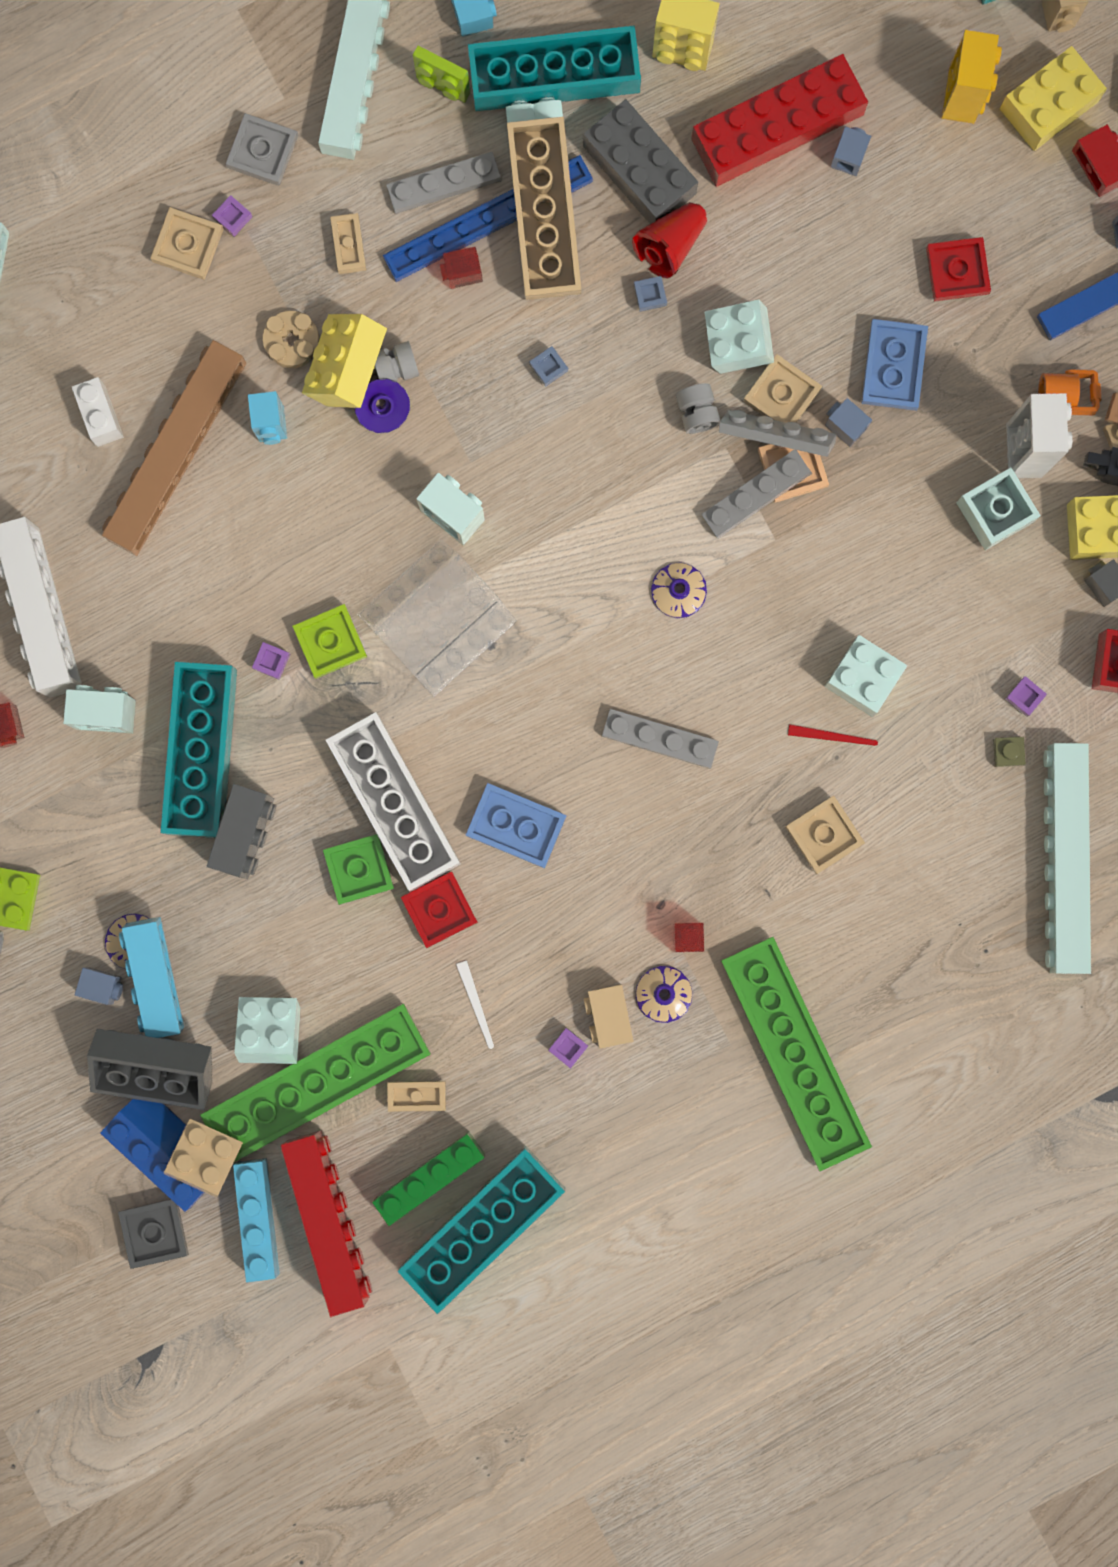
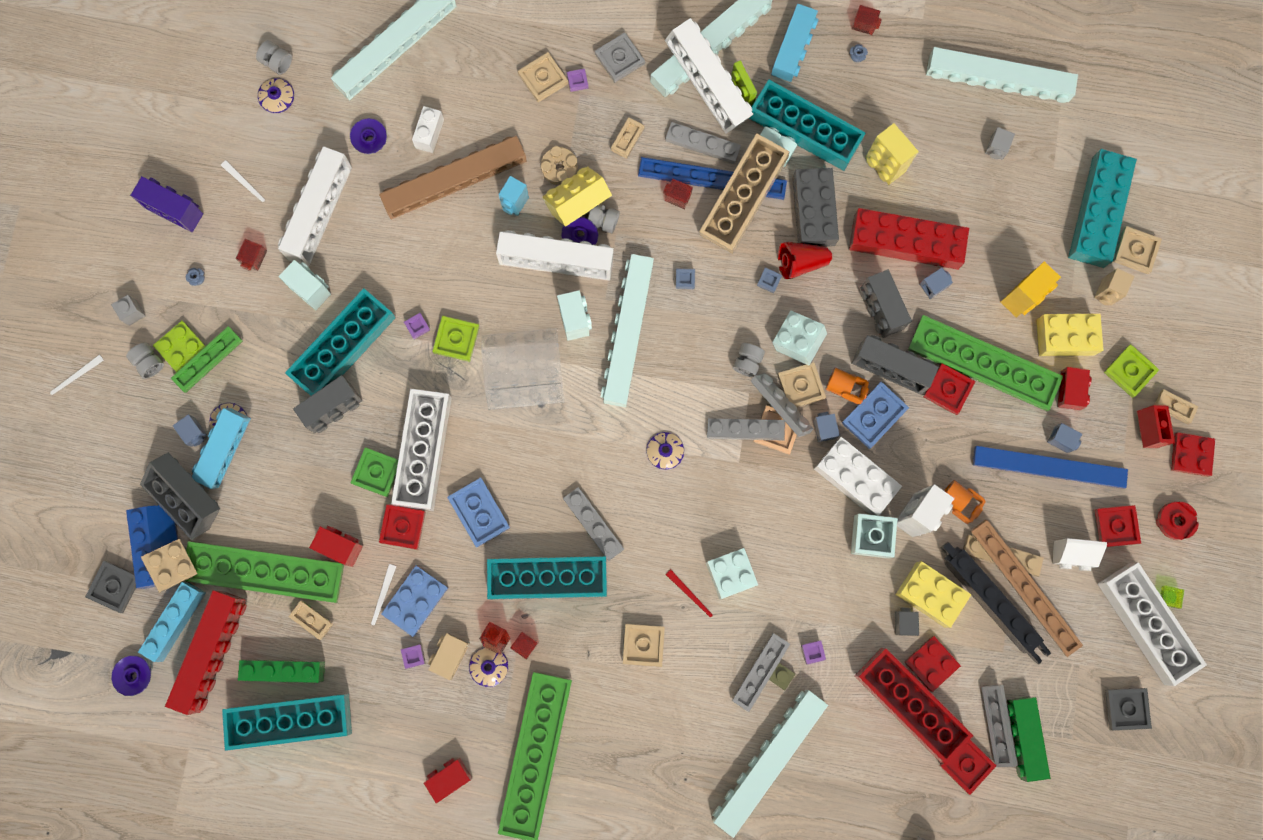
camera: 30 degrees right, 5 degrees down
(21, 465) = (368, 128): none -> dark purple dish
(50, 888) = (206, 359): none -> bright green plate
(247, 1325) = (122, 675): none -> dark purple dish
(267, 1030) = (258, 522): light aqua brick -> none
(374, 452) = (555, 255): none -> white brick
(381, 988) = (332, 544): none -> red brick
(394, 93) = (708, 75): none -> white brick
(520, 983) = (414, 601): none -> medium blue plate
(528, 478) = (628, 330): none -> light aqua brick
(648, 955) = (494, 638): none -> clear red brick
(656, 840) = (546, 578): none -> teal brick
(716, 1155) = (447, 780): none -> red brick
(810, 220) = (885, 304): none -> dark grey brick
(830, 356) = (842, 384): none -> orange piece
(875, 286) = (894, 364): none -> dark grey brick
(928, 454) = (858, 477): none -> white brick
(977, 206) = (985, 363): none -> bright green plate
(982, 764) = (760, 672): none -> light grey plate

